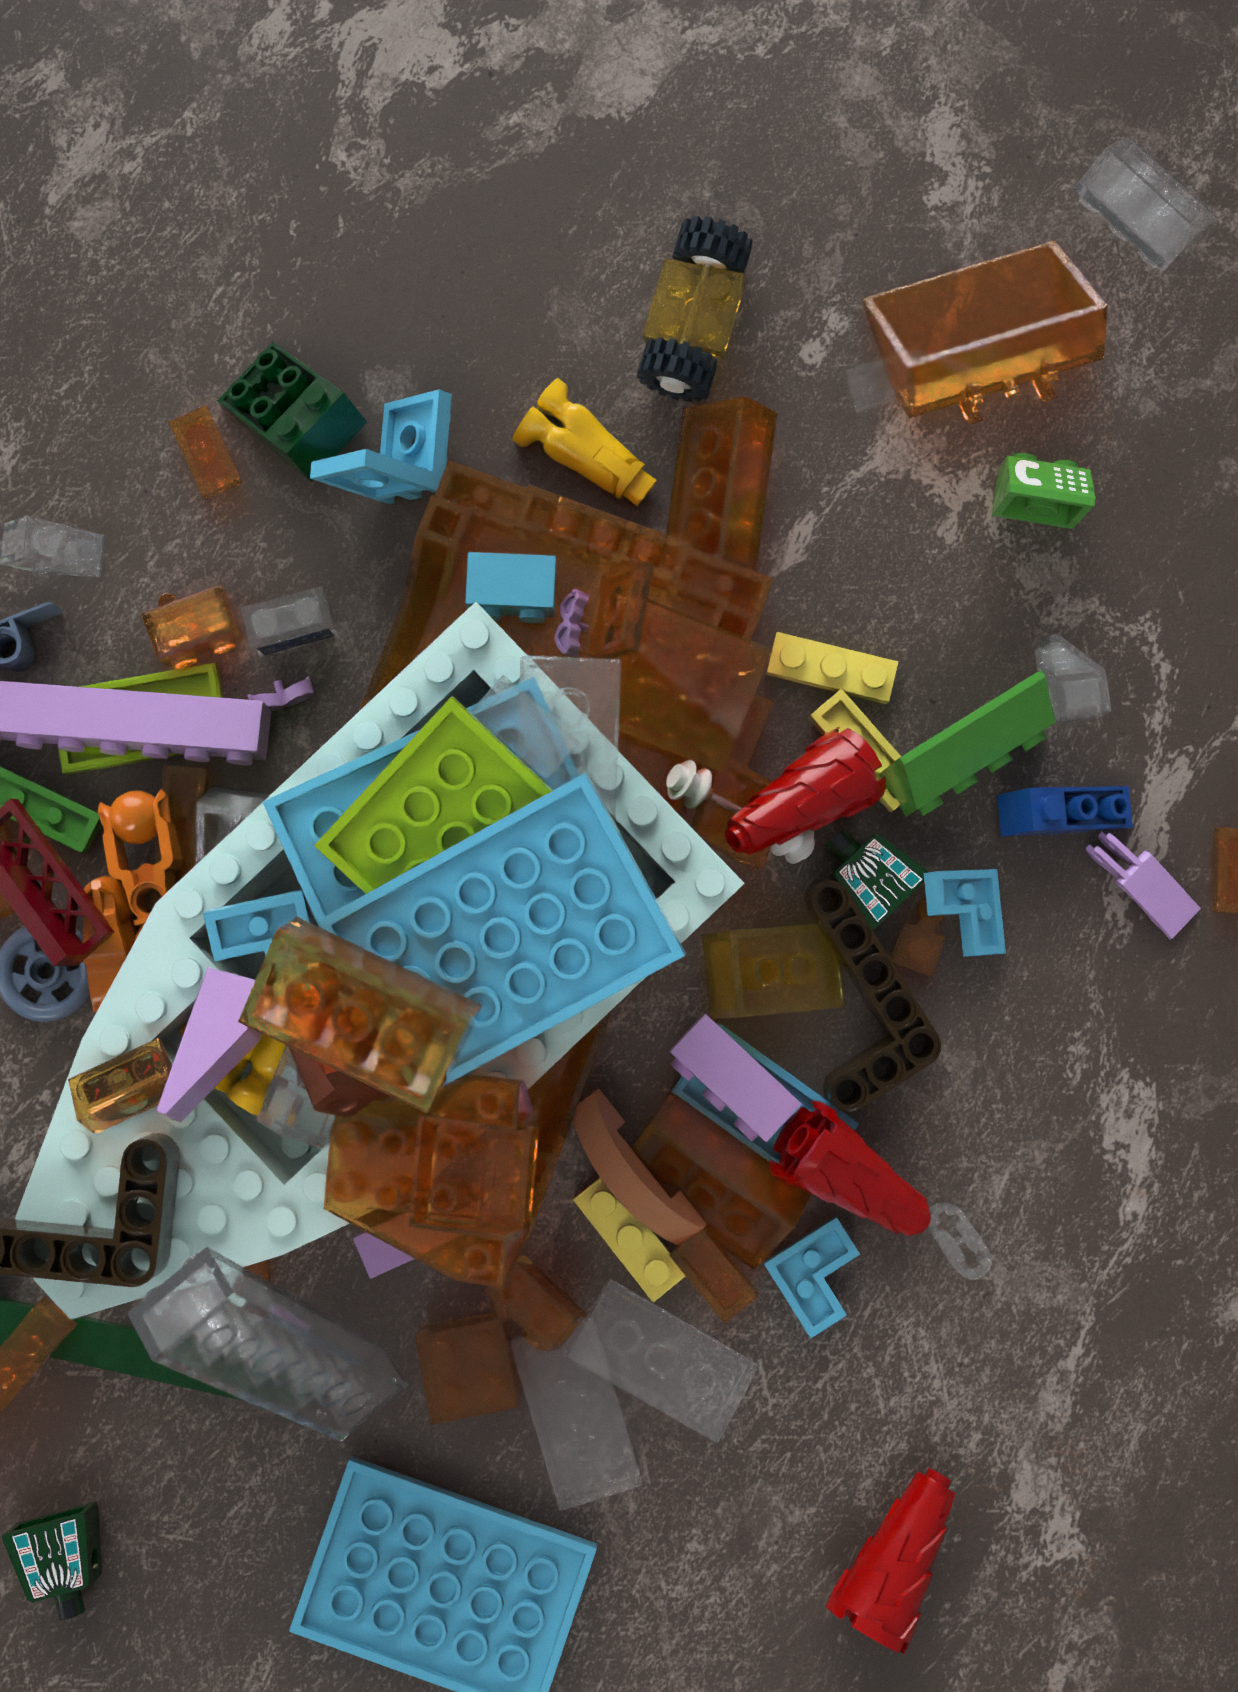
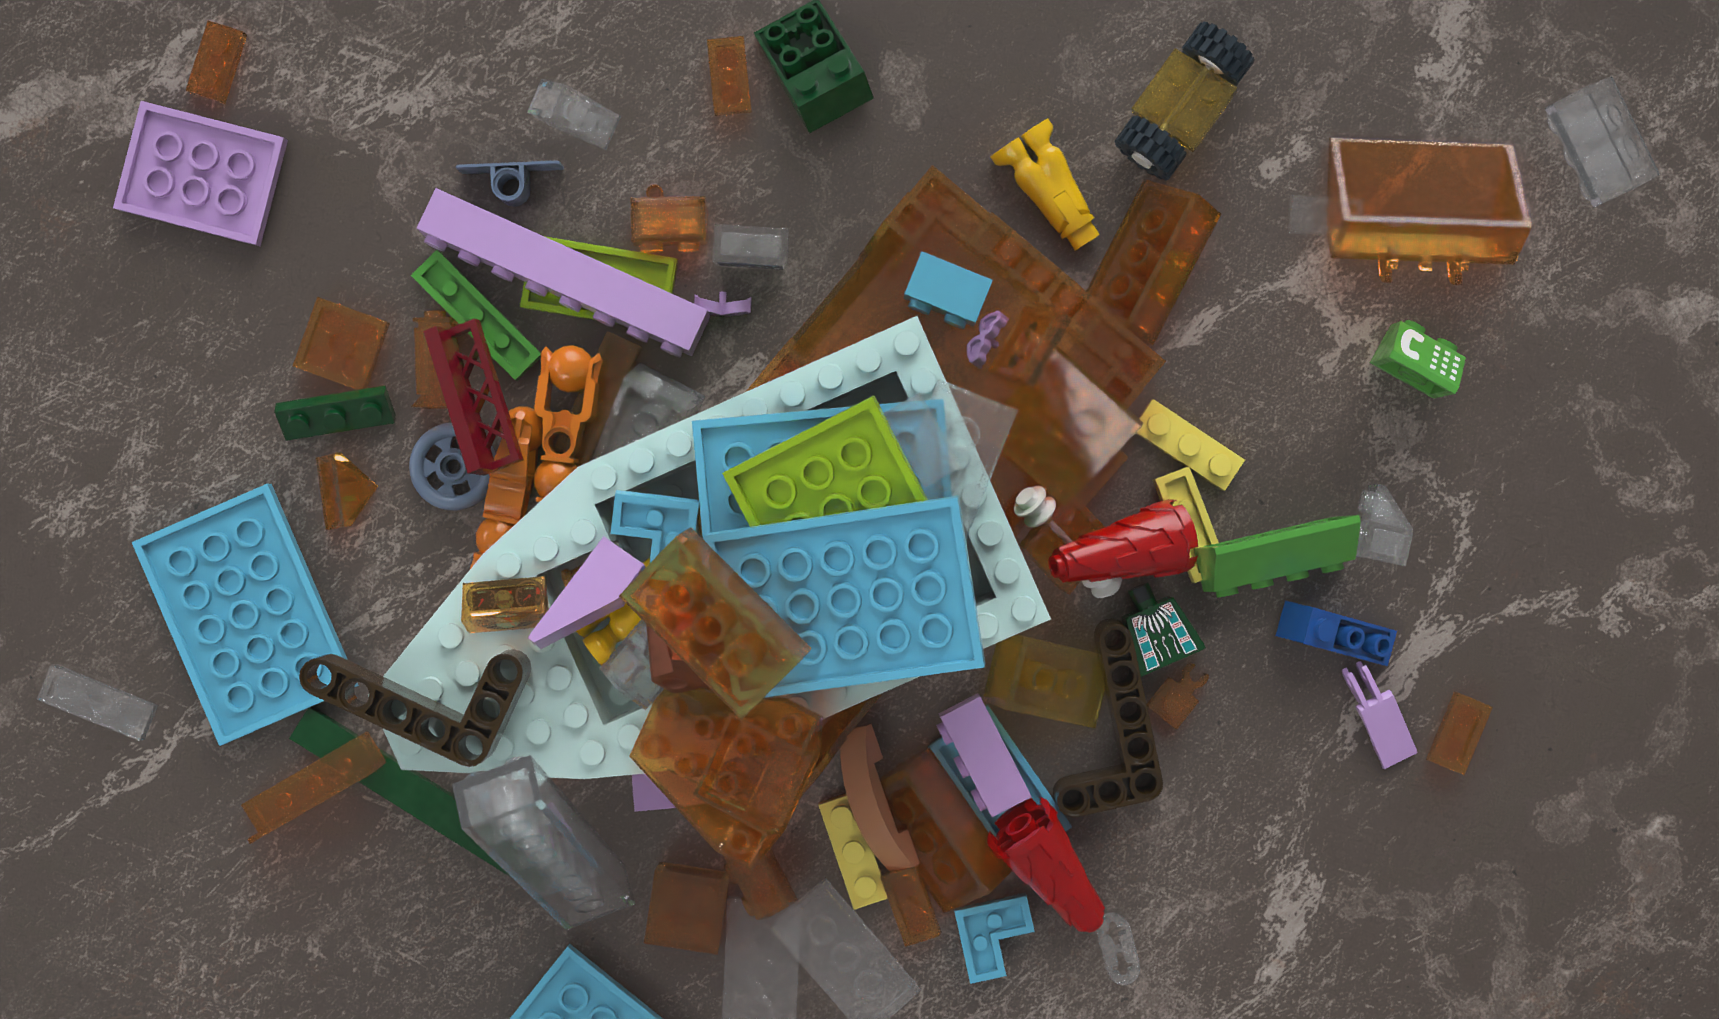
camera: 20 degrees right, 5 degrees up
(57, 1556) = (310, 938): torso -> none
(400, 466) = (888, 149): medium azure bracket -> none
(978, 903) = (1235, 684): medium azure plate -> none

